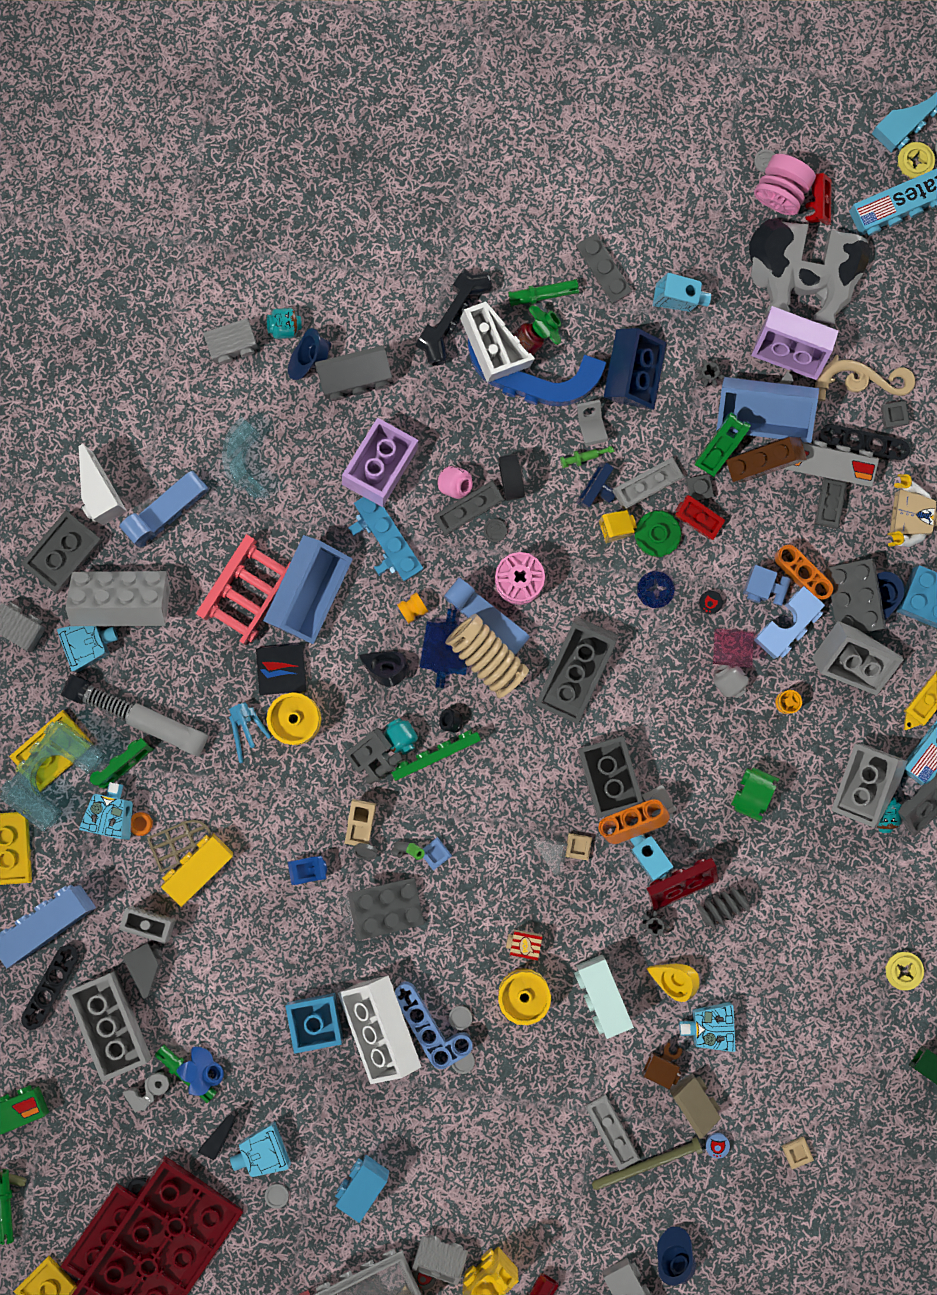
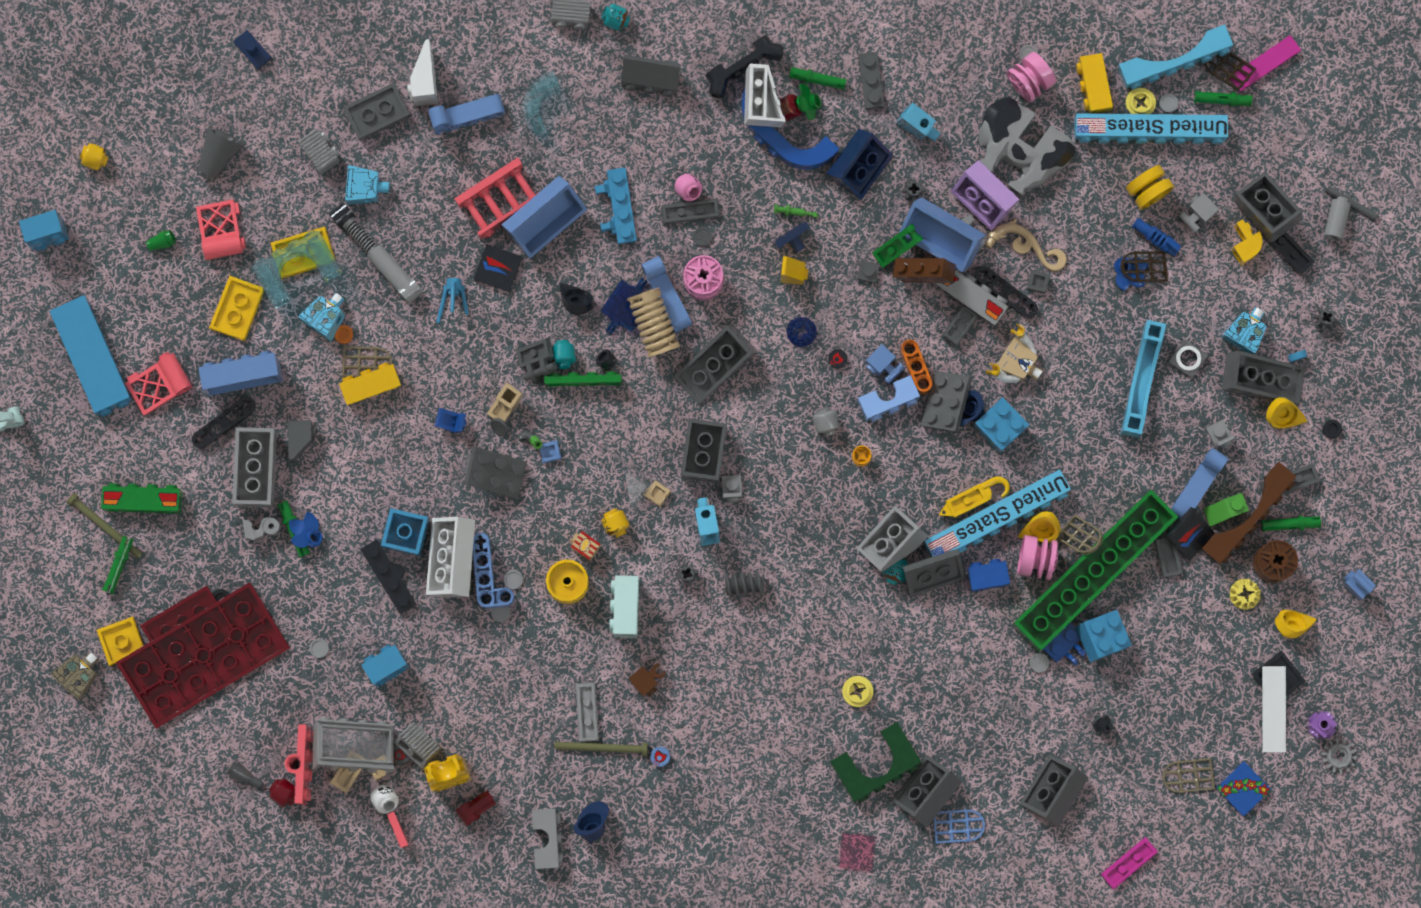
camera: 20 degrees right, 5 degrees down
(118, 598) = (403, 162): light grey brick -> none
(121, 763) = (350, 284): green plate -> none
(147, 924) = (316, 407): light grey brick -> none
(213, 1145) = (295, 586): black slope -> none
(262, 1152) = (323, 609): medium azure torso -> none
(281, 712) = (481, 302): yellow wheel -> none
(309, 350) = (624, 45): dark blue piece -> none
(318, 1078) = (389, 576): none -> black hinge
(379, 462) = (639, 148): lavender brick -> none
(412, 608) = (615, 265): light orange wheel -> none
(511, 477) = (731, 201): black tyre -> none
(547, 903) = (615, 523): none -> yellow head
(591, 424) = (809, 190): light grey bracket -> none
(622, 820) = (705, 489): orange beam -> none
(648, 483) = (831, 251): light grey tile -> none
(660, 540) = (826, 295): green tile -> none
(676, 979) = (685, 621): yellow piece -> none
(682, 883) = (721, 552): dark red plate -> none
(695, 1104) = (657, 716): dark tan slope -> none
(699, 517) = (857, 292): red plate -> none
(711, 1027) = (695, 667): medium azure torso -> none
(733, 648) = (838, 398): clear pink piece -> none
(755, 794) = (804, 510): green brick -> none
(797, 1153) = (717, 789): tan tile -> none
(822, 192) = (1056, 101): red plate -> none
(856, 161) = (1094, 84): none -> yellow brick
(856, 659) = (925, 446): light grey slope -> none

